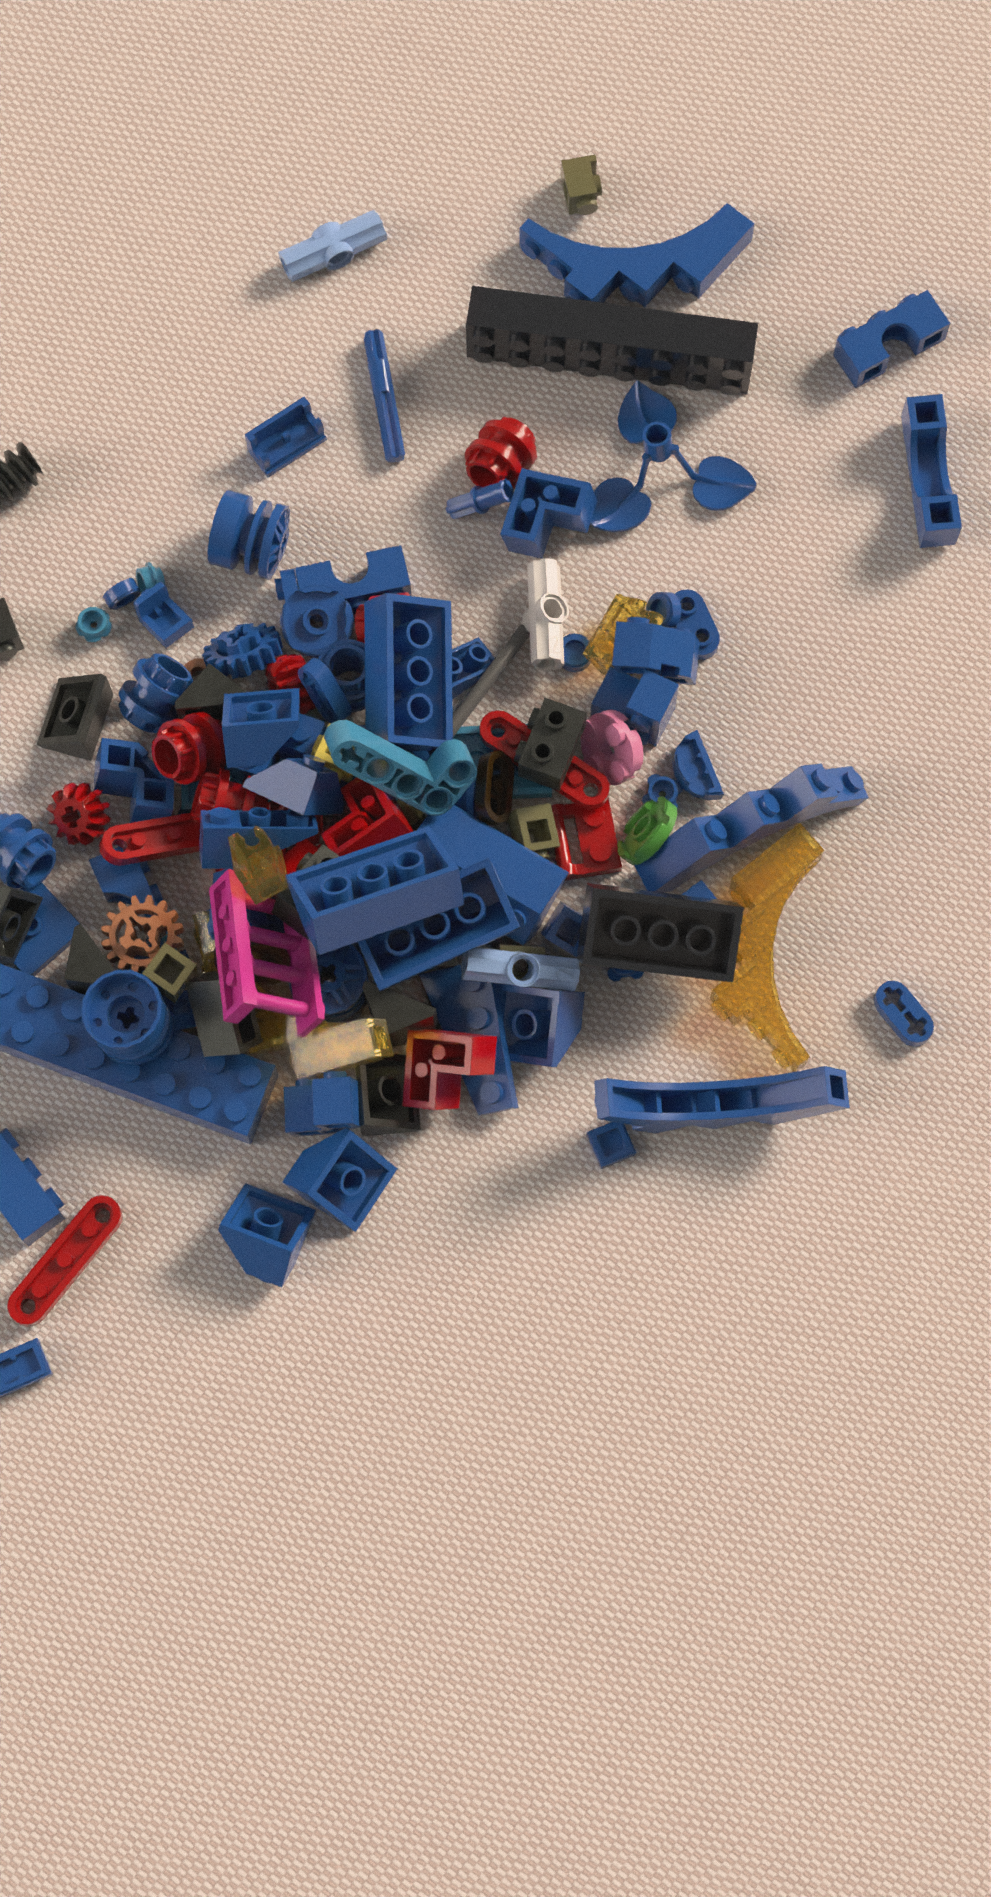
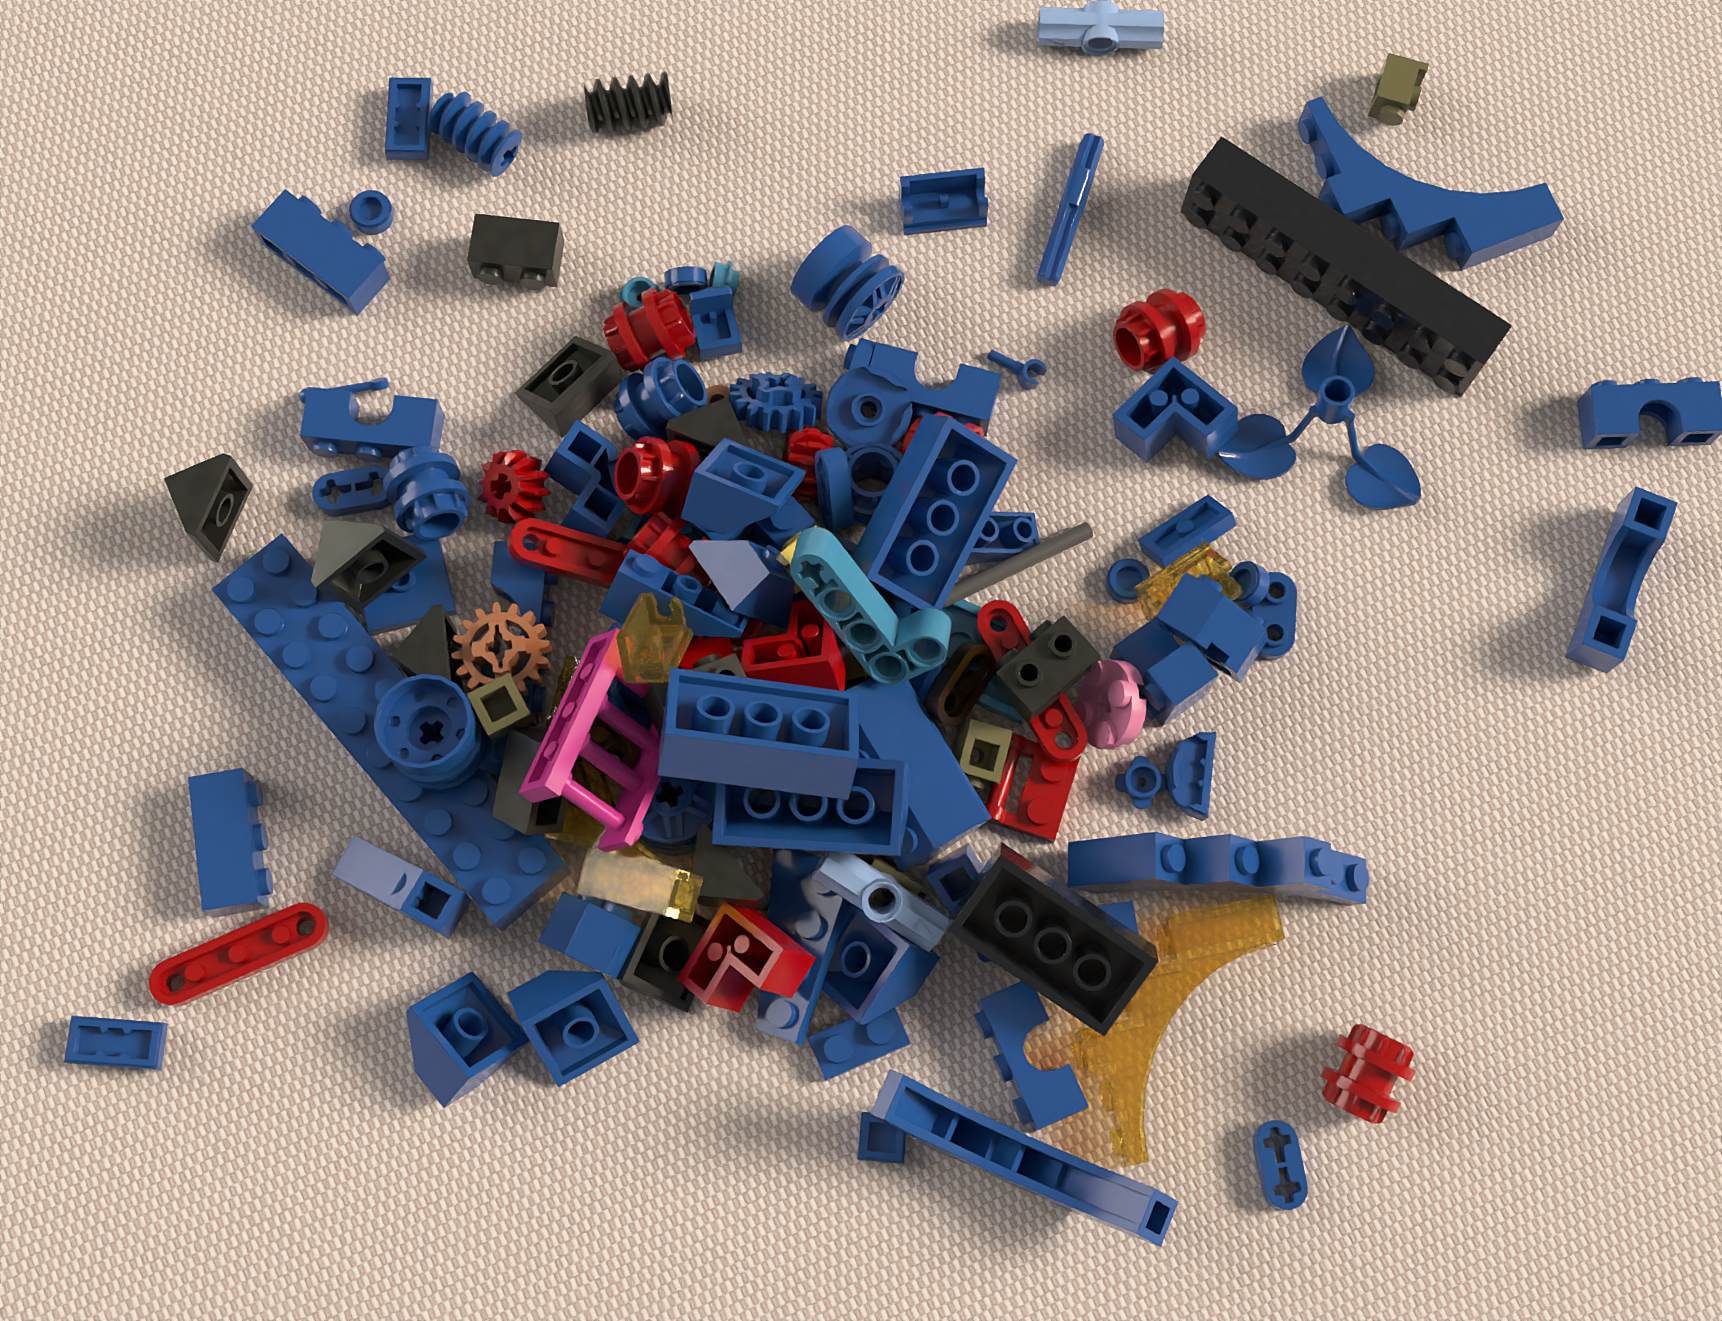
camera: 25 degrees right, 0 degrees up
(117, 644) = (649, 330): none -> red piece
(160, 1147) = (402, 886): none -> slope
(410, 535) = (1019, 368): none -> blue hand
(480, 499) = (1112, 367): blue axle -> none
(545, 615) = (1116, 525): white piece -> none
(556, 1086) = (855, 1044): none -> blue plate
(598, 593) = (1197, 523): none -> blue plate
(647, 830) = (1102, 816): bright green tile -> none
(708, 1051) = (1041, 1094): none -> blue arch
(931, 915) = (1367, 1074): none -> red piece

